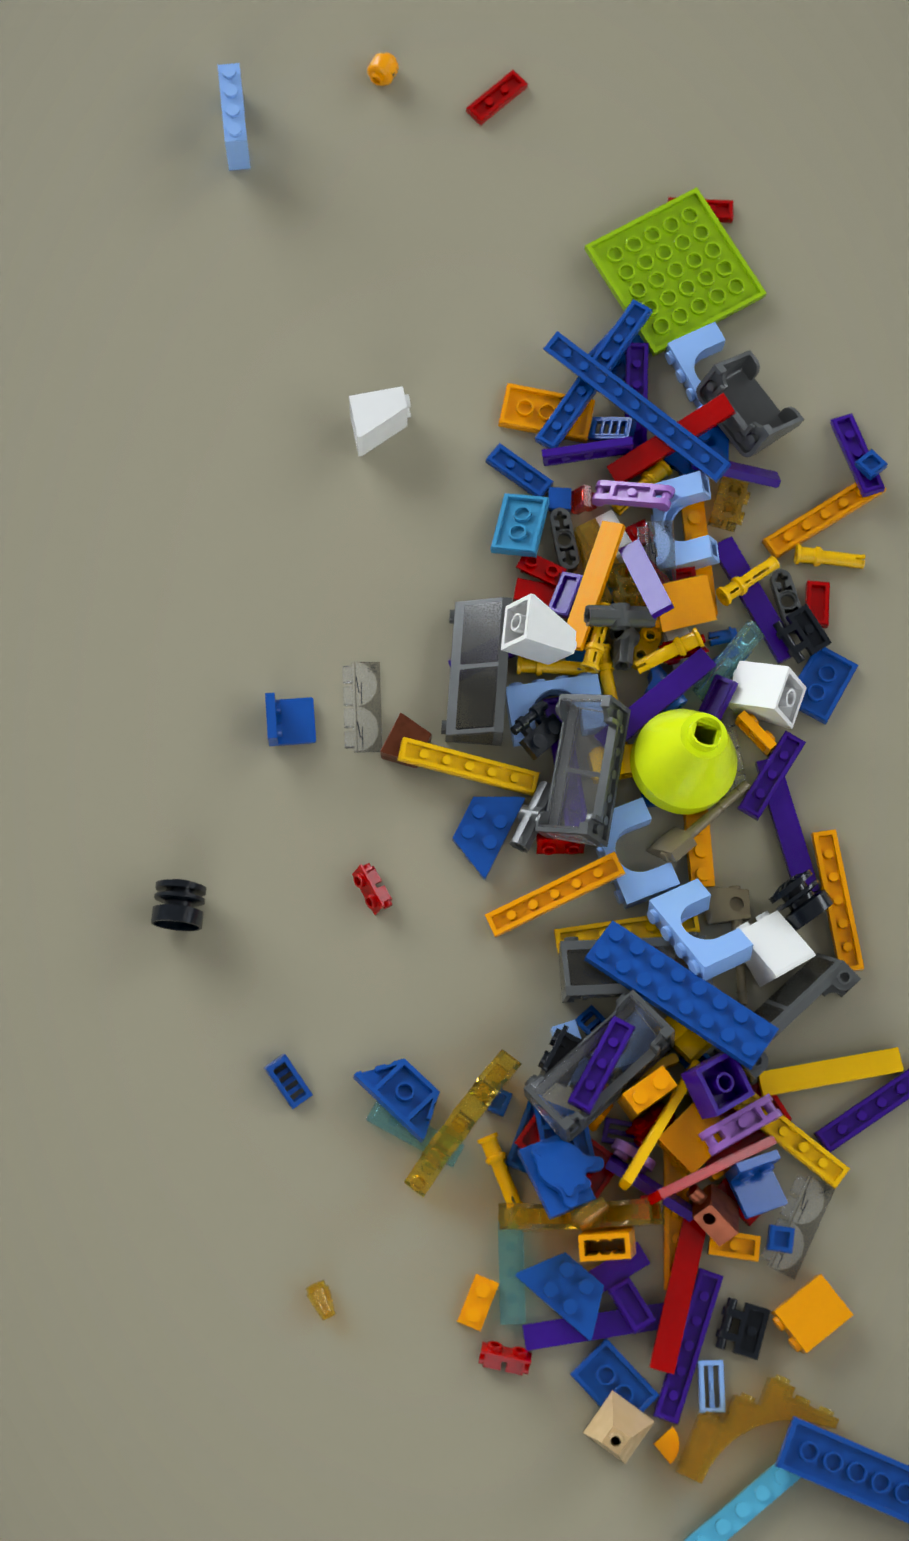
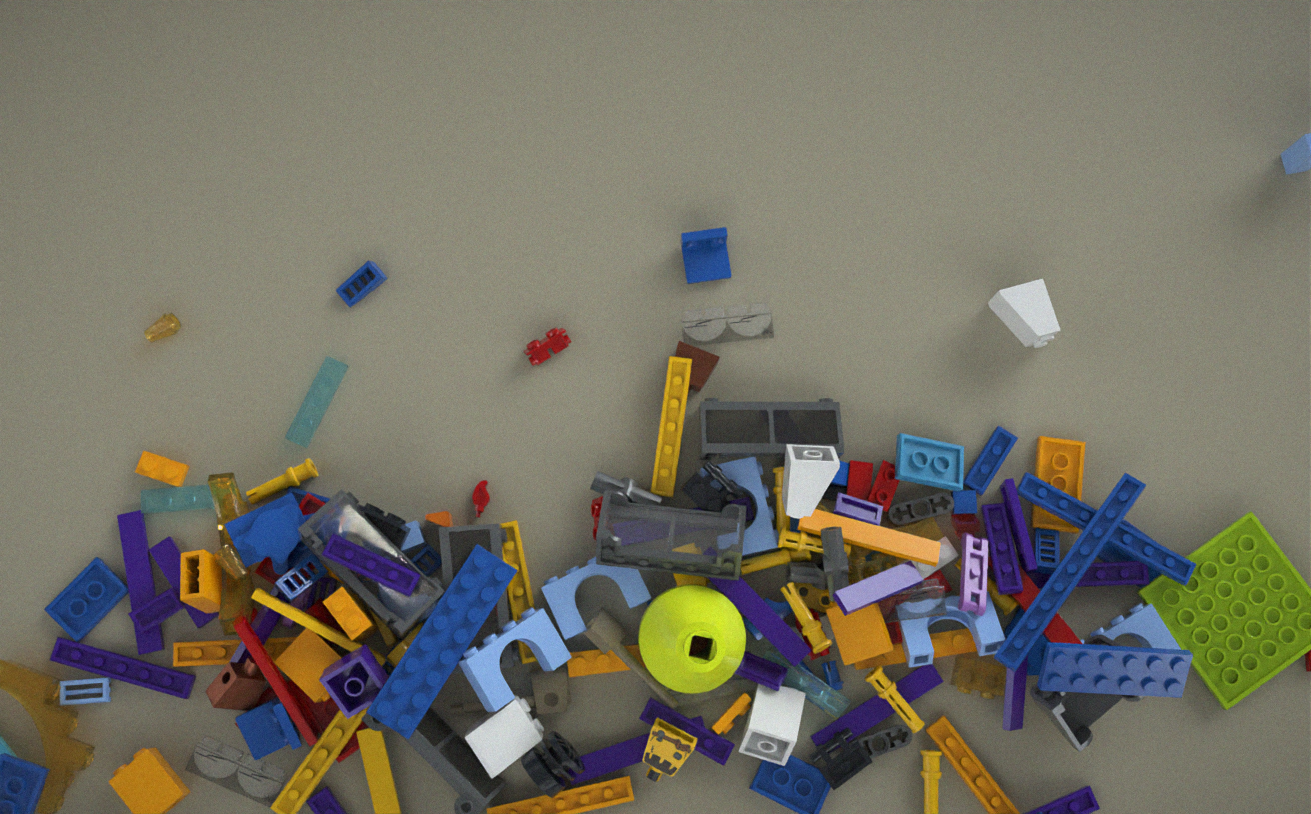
camera: 85 degrees right, 5 degrees up
(178, 899) = (515, 169): black wheel -> none
(402, 1093) = (349, 386): blue wing -> none
(461, 1122) = (325, 443): clear yellow arch -> none
(486, 829) = (612, 449): blue wing -> none
(494, 1353) = (114, 488): red hinge -> none
(501, 1103) = (349, 475): blue tile -> none
(528, 965) = (480, 497): none -> red piece
(550, 1002) = (441, 519): none -> orange slope
(555, 894) = (547, 517): light orange plate -> none
(567, 1290) = (162, 552): blue wing -> none
(608, 468) = (1001, 549): none -> dark purple tile
(614, 1160) = (289, 595): none -> blue slope
(618, 1427) = (41, 601): tan slope -> none
(668, 1445) = (32, 652): light orange tile -> none
(677, 1297) = (159, 653): red tile -> none
(734, 377) = (1114, 670): none -> blue plate
(739, 1247) = (212, 719): light orange plate -> none
(740, 1124) = (321, 707): medium lavender plate -> none
(750, 1330) = (136, 727): black plate -> none
(780, 1239) = (219, 753): blue tile -> none
(790, 792) = (667, 749): none -> yellow torso
(817, 599) = (881, 776): red tile -> none

